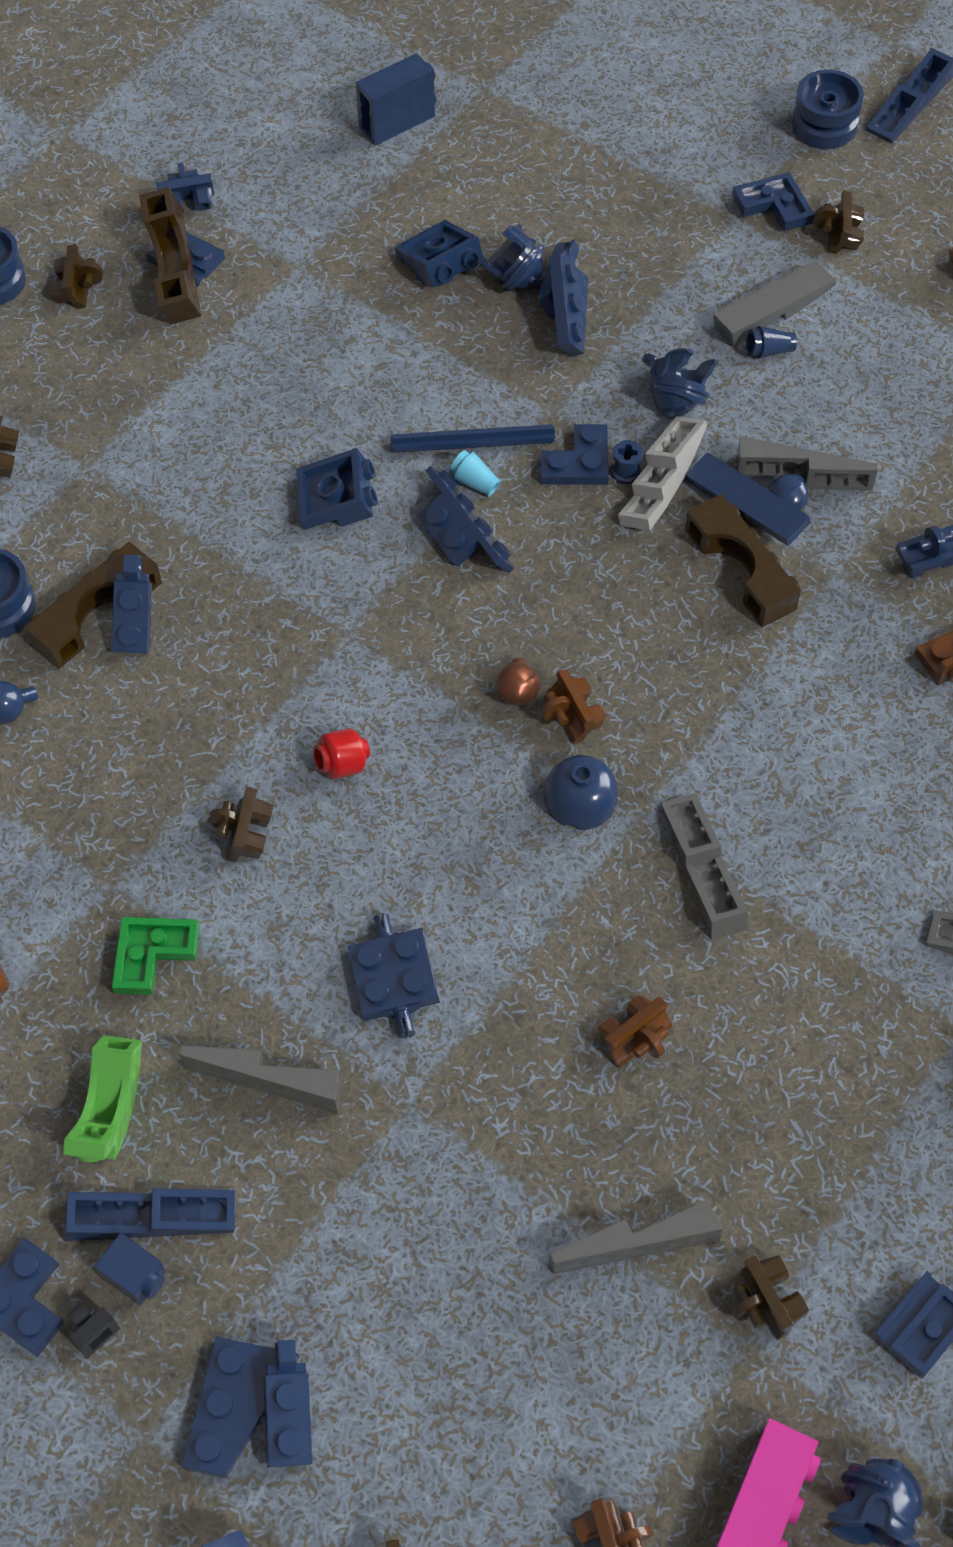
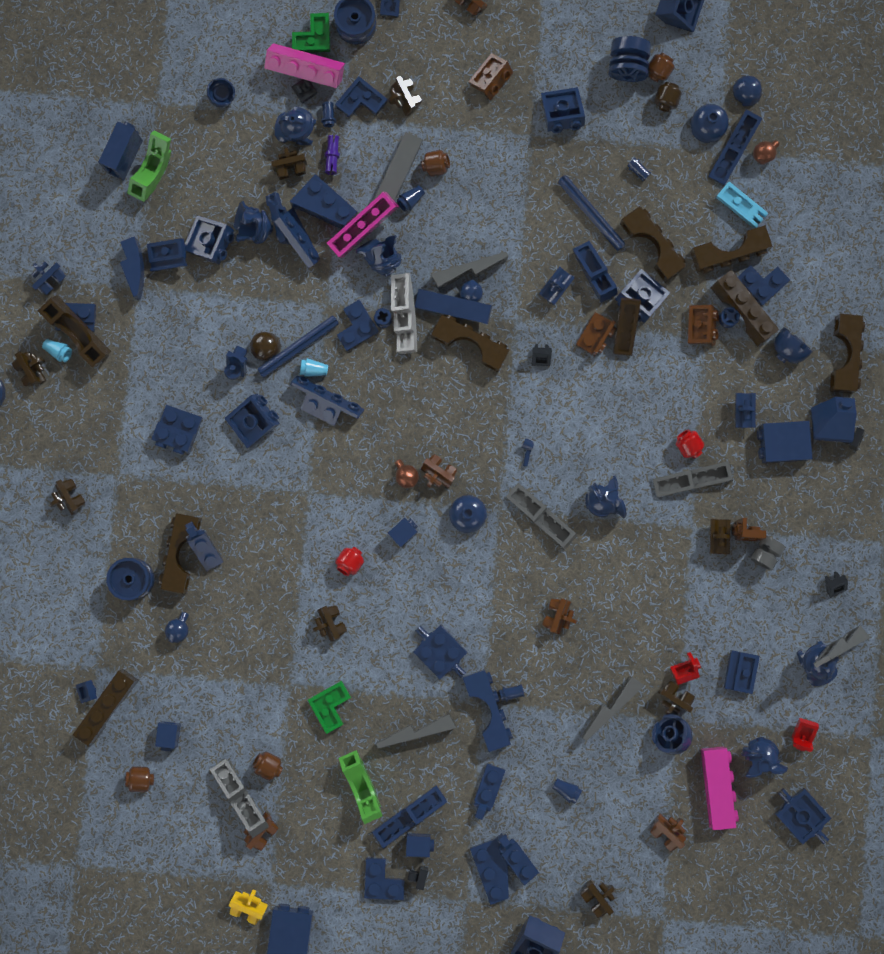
camera: 30 degrees left, 25 degrees up
(130, 277) = (58, 350): none -> medium azure cone
(215, 451) = (177, 430): none -> dark blue plate
(311, 234) = (133, 266): none -> dark blue slope
(319, 1254) = (488, 789): none -> dark blue hinge
(365, 406) = (236, 363): none -> dark blue hips
(368, 241) = (167, 254): none -> dark blue plate
(398, 1157) = (495, 733): none -> dark blue arch
(424, 412) = (265, 345): none -> dark brown hair
(429, 142) = (153, 167): none -> bright green arch
(457, 758) = (403, 531): none -> dark blue brick
(464, 1344) = (567, 790): none -> dark blue cone
(470, 1110) = (511, 693): none -> dark blue pin
(580, 106) = (220, 92): none -> dark blue hair
(619, 221) = (287, 161): none -> dark brown hips
(637, 287) = (323, 203): none -> dark blue wedge
(656, 179) = (297, 129): none -> dark blue helmet
(677, 325) = (362, 224): none -> dark pink brick
(688, 242) = (332, 155): none -> dark purple pin
(700, 158) = (304, 90): none -> black tile
(711, 202) = (328, 114): none -> dark blue pin
(720, 126) = (304, 65): none -> dark pink brick
(726, 1353) = (672, 734): none -> dark blue cylinder
(747, 749) = (528, 445): none -> dark blue hand
(755, 113) = (318, 39): none -> green plate
(818, 1259) = (686, 670): none -> red bracket
(831, 885) = (604, 500): none -> dark blue helmet
(837, 317) = (436, 163): none -> reddish brown head
(847, 633) = (541, 356): none -> black tile

